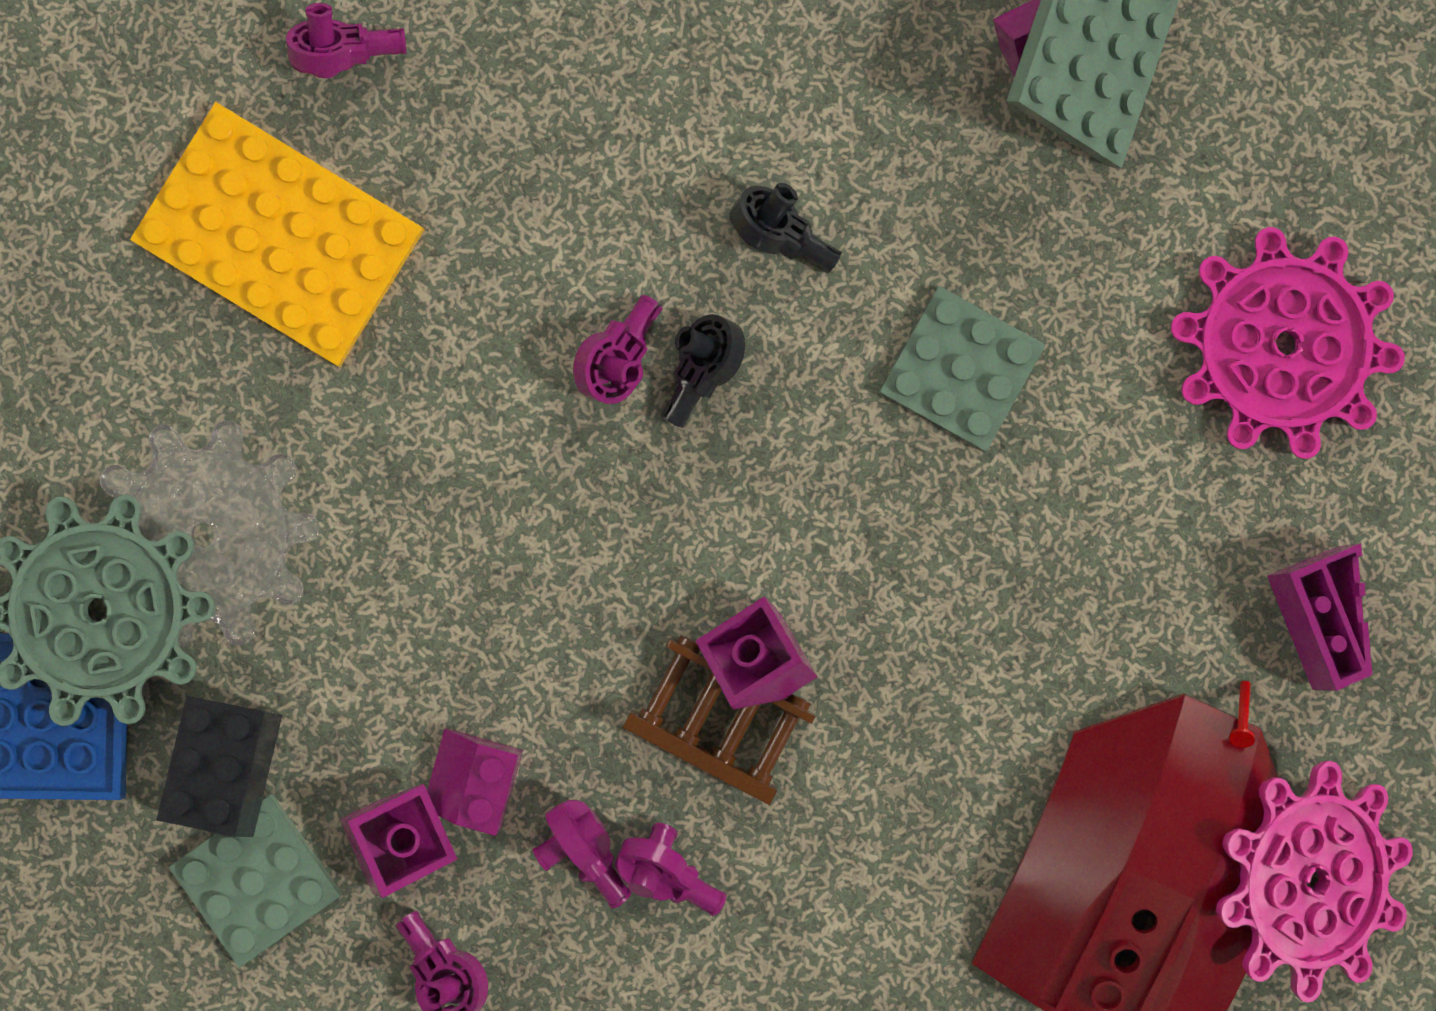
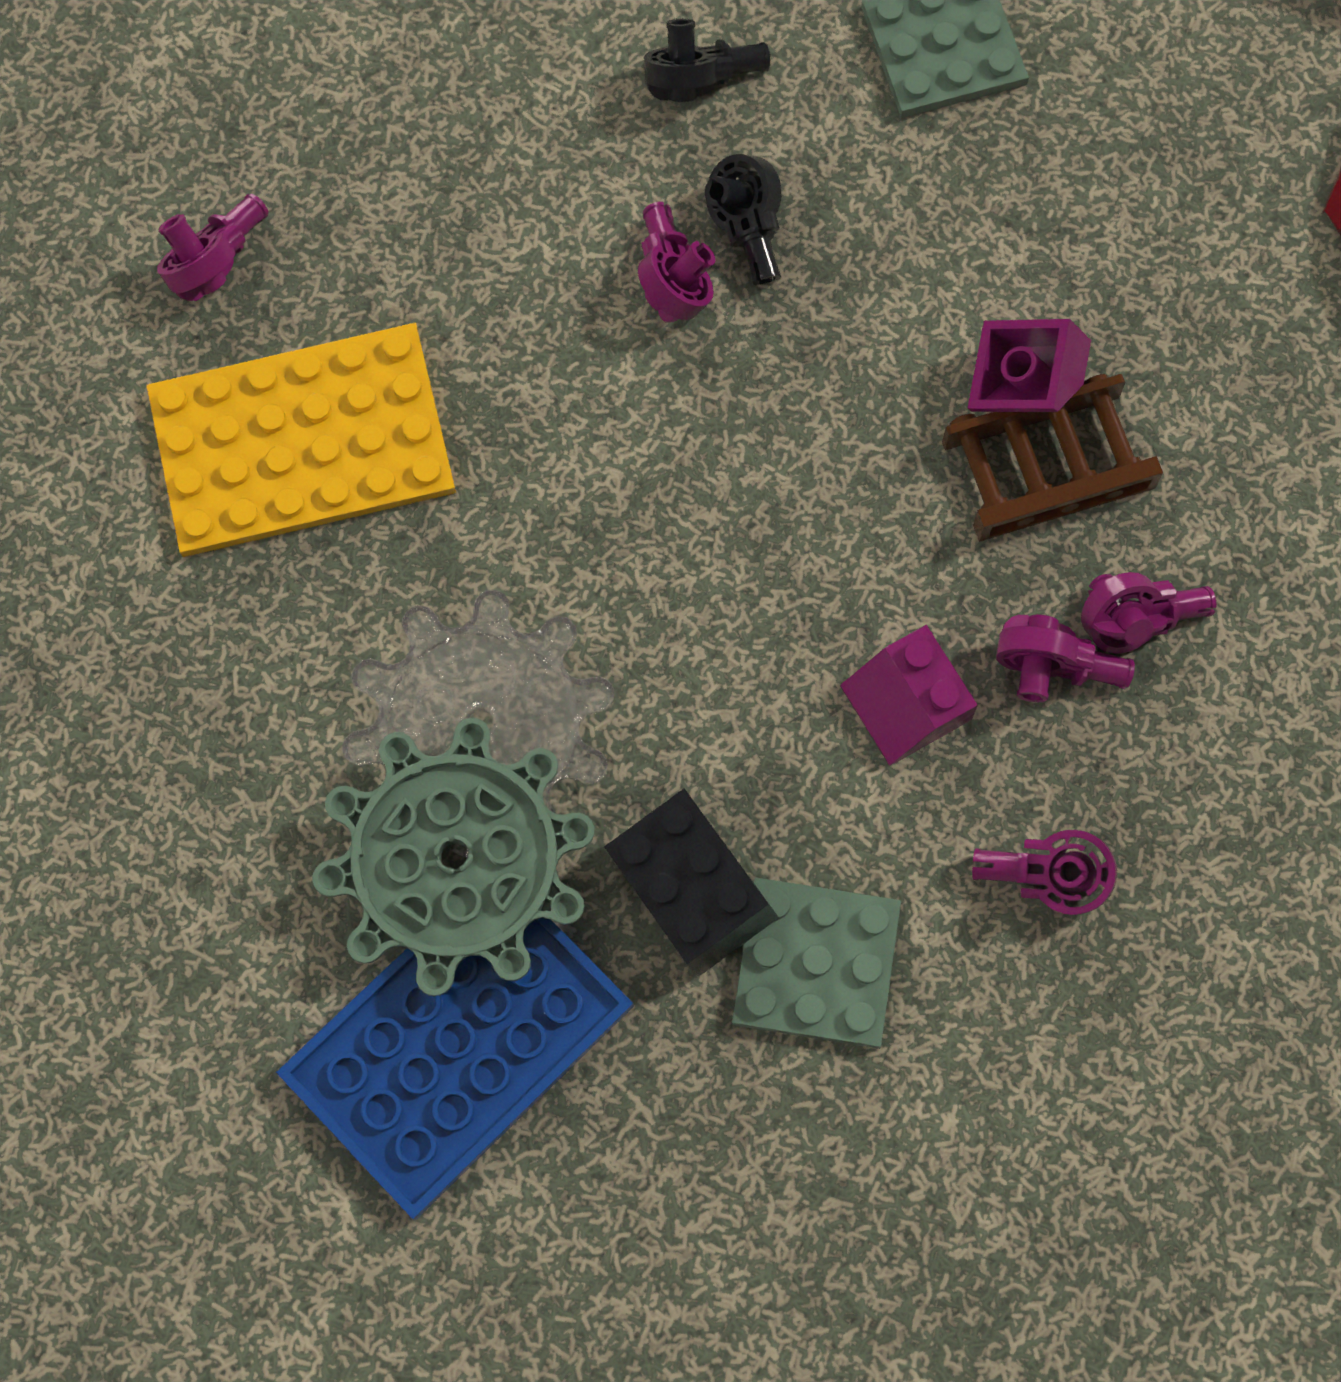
camera: 45 degrees left, 15 degrees down
(398, 840) = (900, 800): magenta slope -> none

